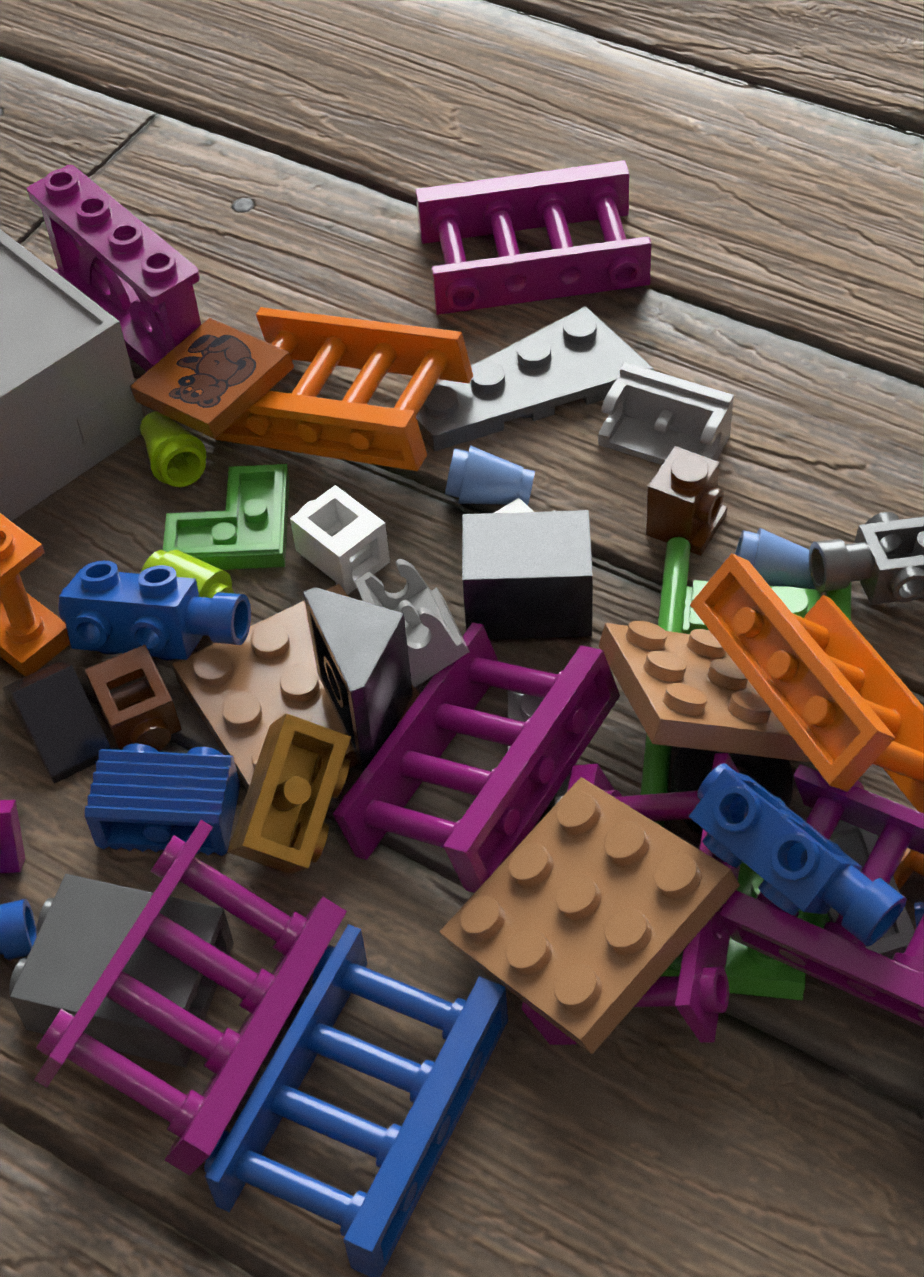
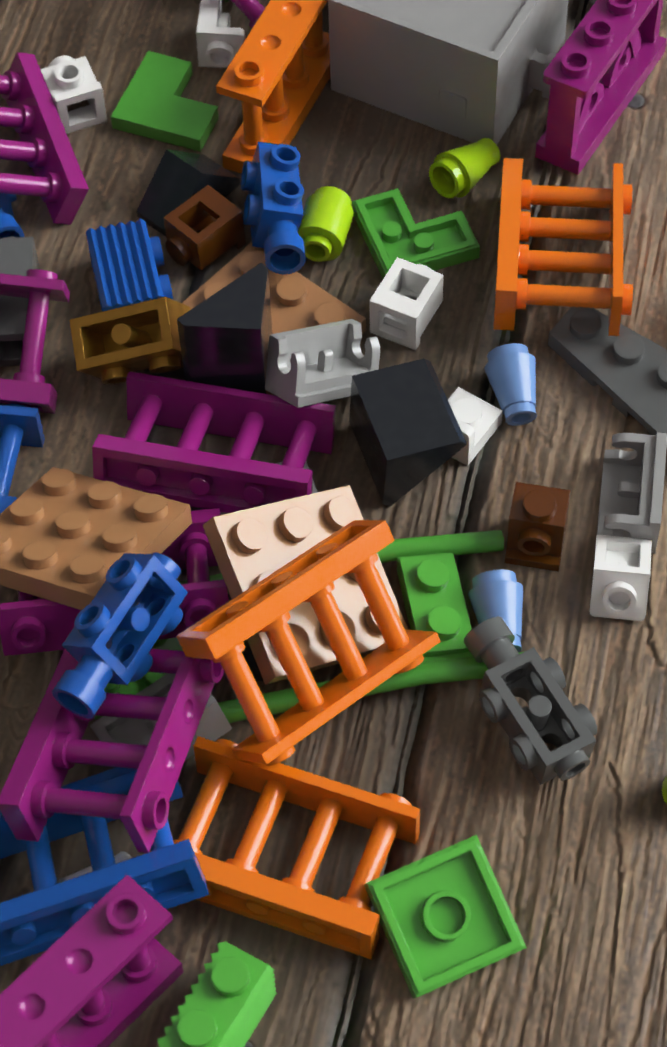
camera: 70 degrees right, 5 degrees up
(212, 377) = (518, 156): dark orange tile -> none
(764, 451) = (621, 577): none -> white bracket

